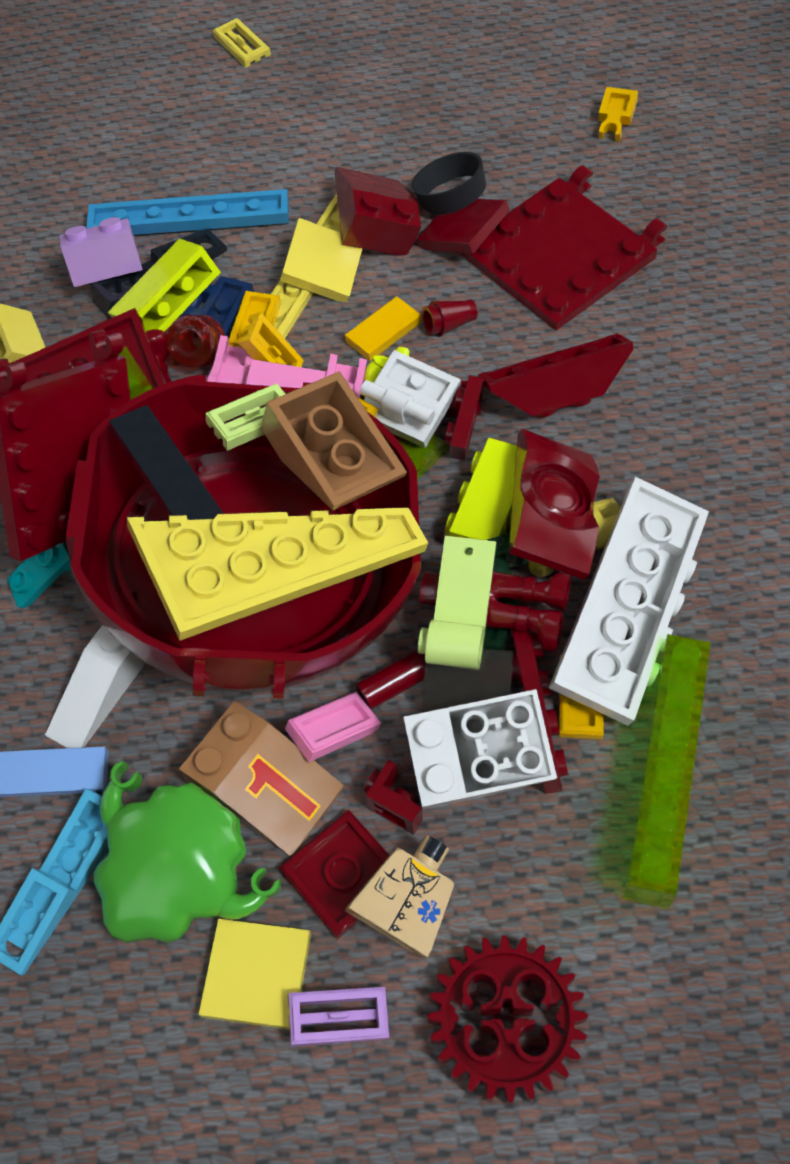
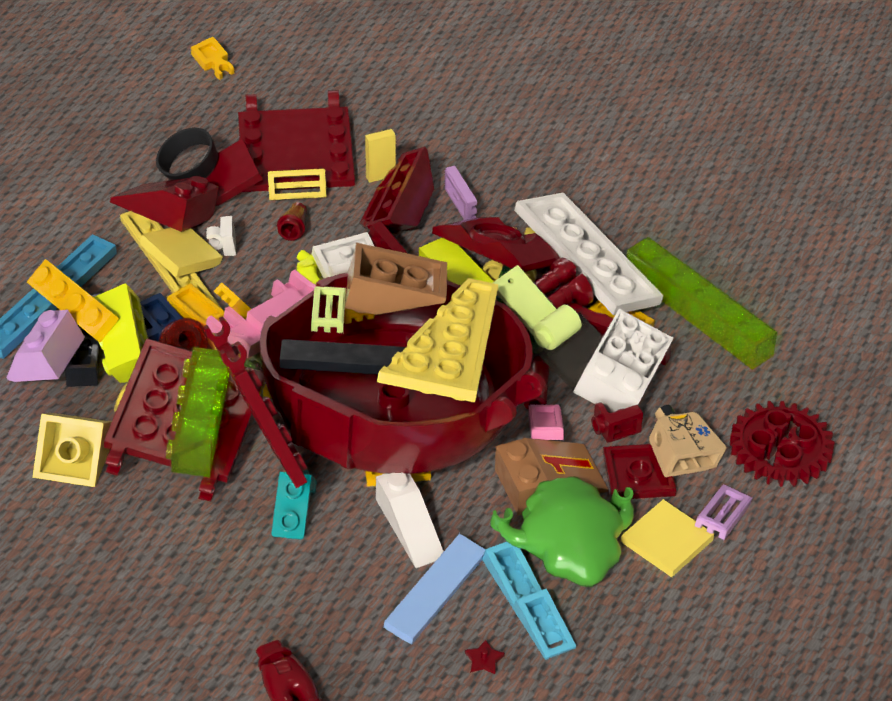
camera: 60 degrees left, 15 degrees down
(167, 229) = (69, 296): none -> yellow plate
(374, 279) = (224, 236): none -> white tile
(383, 328) = (266, 257): yellow tile -> none
(522, 299) = (295, 173): none -> light yellow tile
(594, 313) = (380, 154): none -> light yellow tile
(620, 422) = (460, 193): none -> lavender tile

